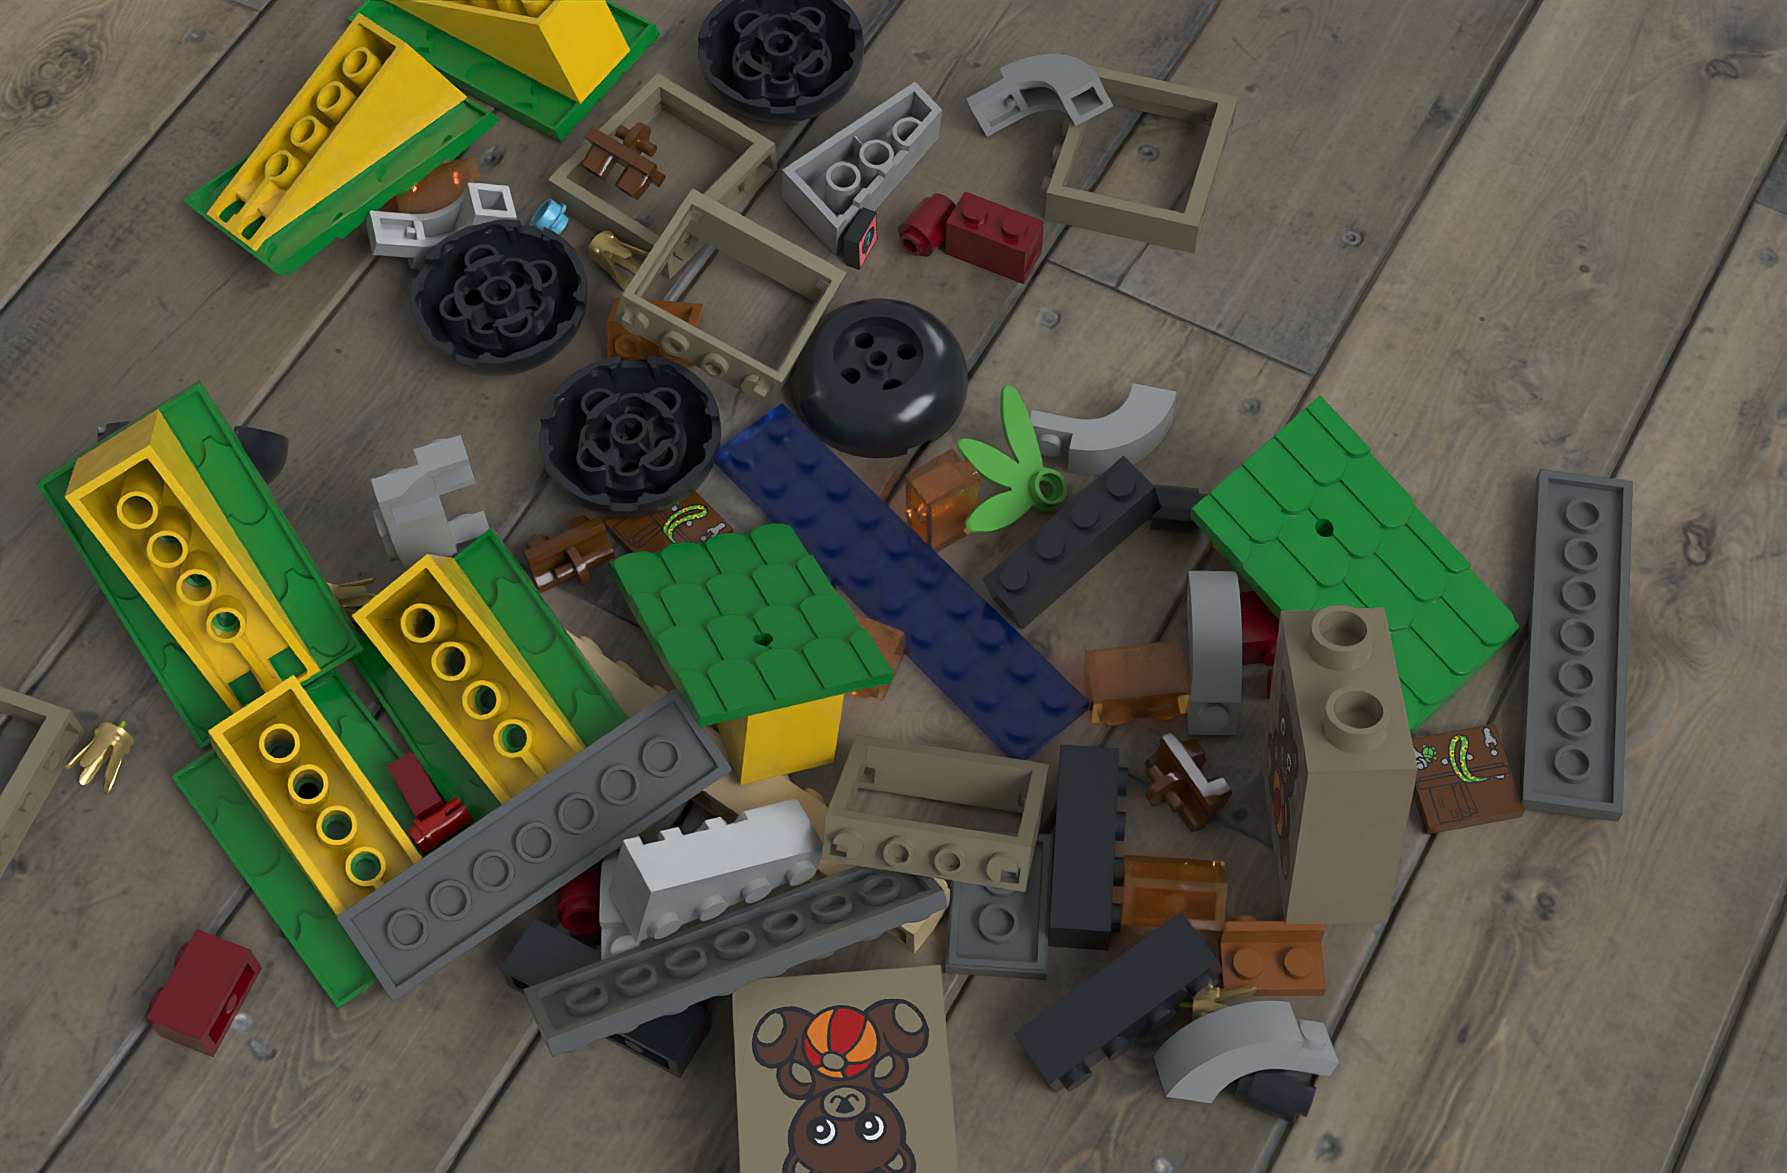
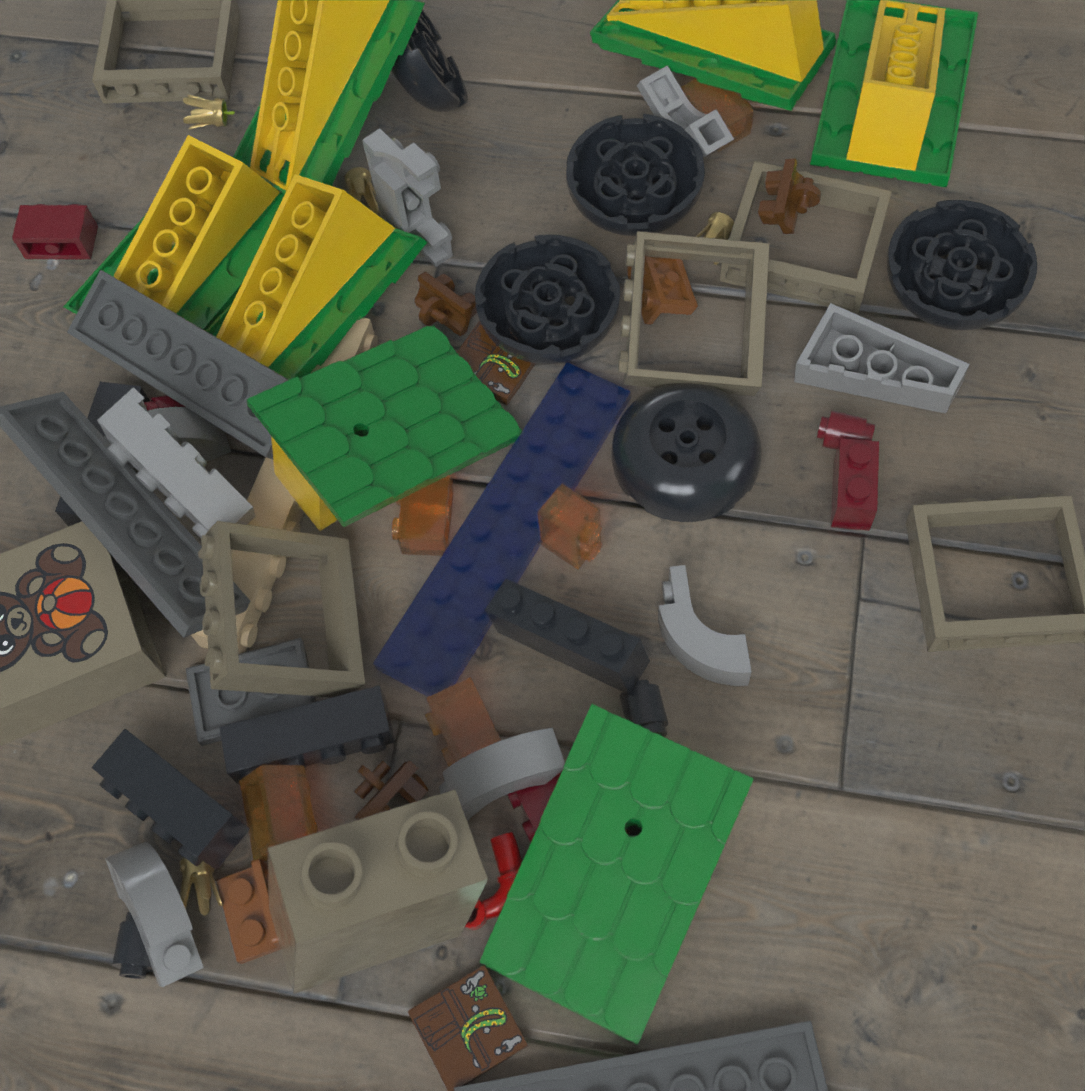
camera: 75 degrees right, 5 degrees up
(415, 785) = (227, 275): dark red piece -> none
(439, 825) = (193, 304): red pin -> none
(550, 216) = (729, 182): medium azure plate -> none
(860, 238) = (809, 389): black tile -> none
(1019, 477) = (618, 561): bright green plant -> none
(1039, 85) = (1024, 463): light grey arch -> none

